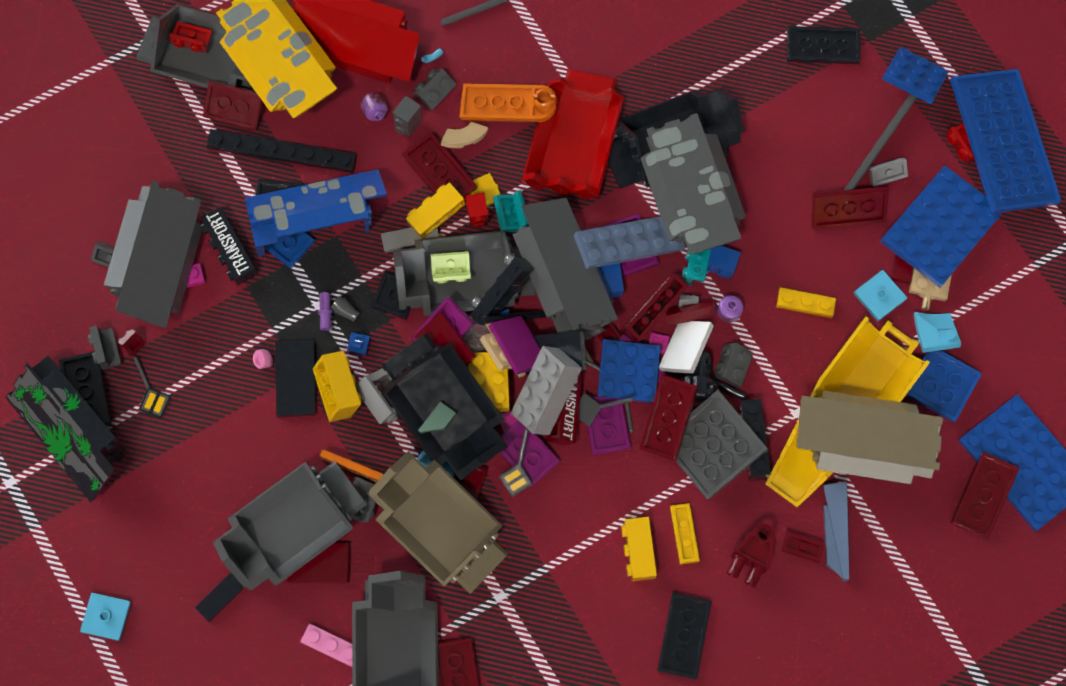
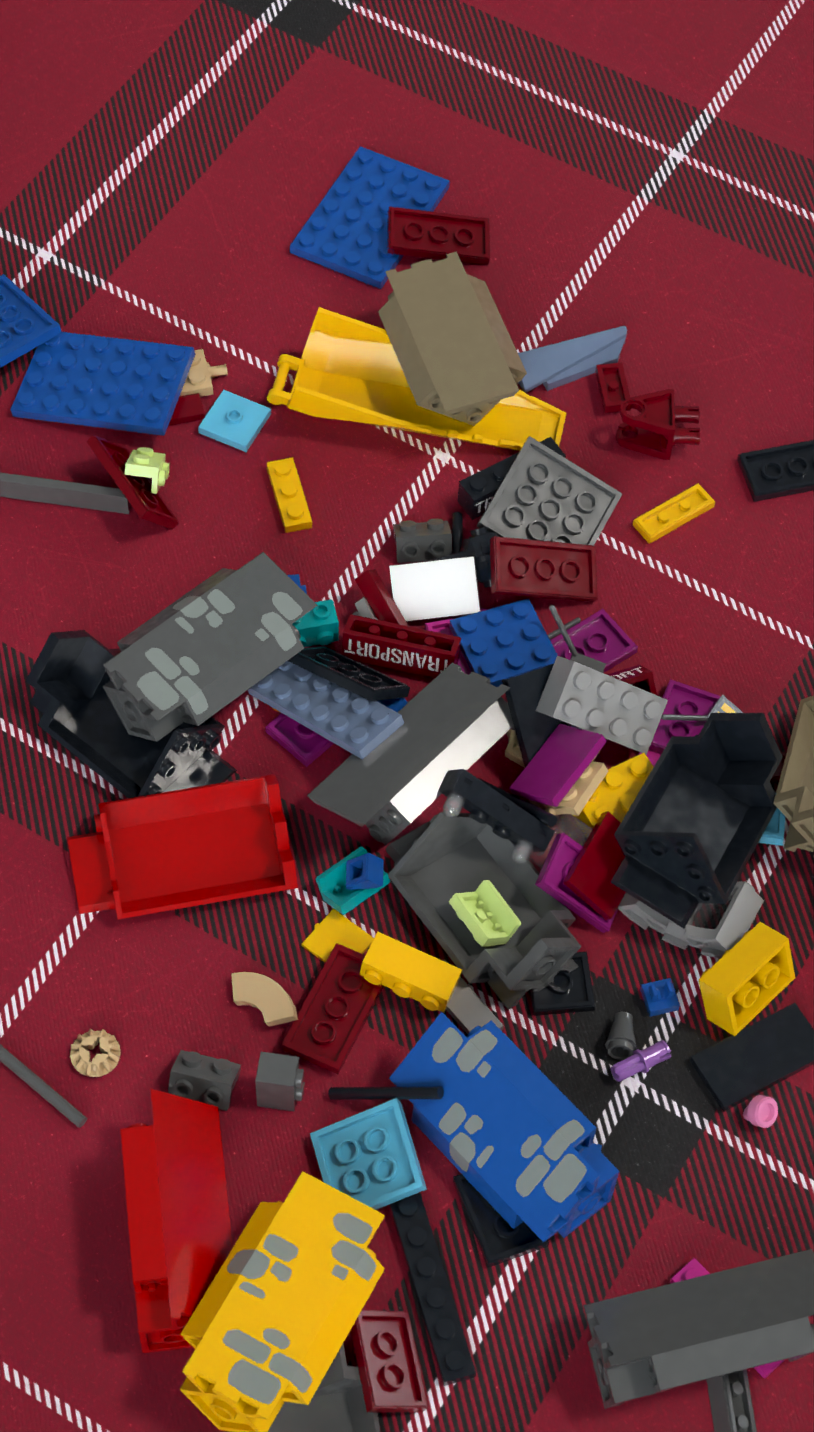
camera: 115 degrees left, 15 degrees down
(228, 245) = (623, 1245): black brick -> none
(340, 142) = (370, 1156): none -> medium azure plate
(369, 165) = (385, 1093): none -> black bar
(374, 107) = (281, 1146): medium lavender head -> none
(431, 57) = (142, 1105): medium azure piece -> none
(438, 419) = (719, 821): sand green tile -> none
(476, 210) = (379, 912): red brick -> none
(477, 51) = (102, 1063): none -> tan gear
(507, 102) = (182, 959): orange plate -> none
(508, 215) = (364, 872): none -> blue slope
(639, 549) = (726, 547): yellow brick -> none
(644, 264) = (349, 674): none -> black tile
(730, 309) = (349, 563): medium lavender head -> none
(855, 218) = (147, 463): none -> yellowish green bracket
(888, 172) = (50, 462): light grey plate -> none
(936, 332) = (256, 342): medium azure plate -> none
(944, 385) = (300, 308): blue plate -> none

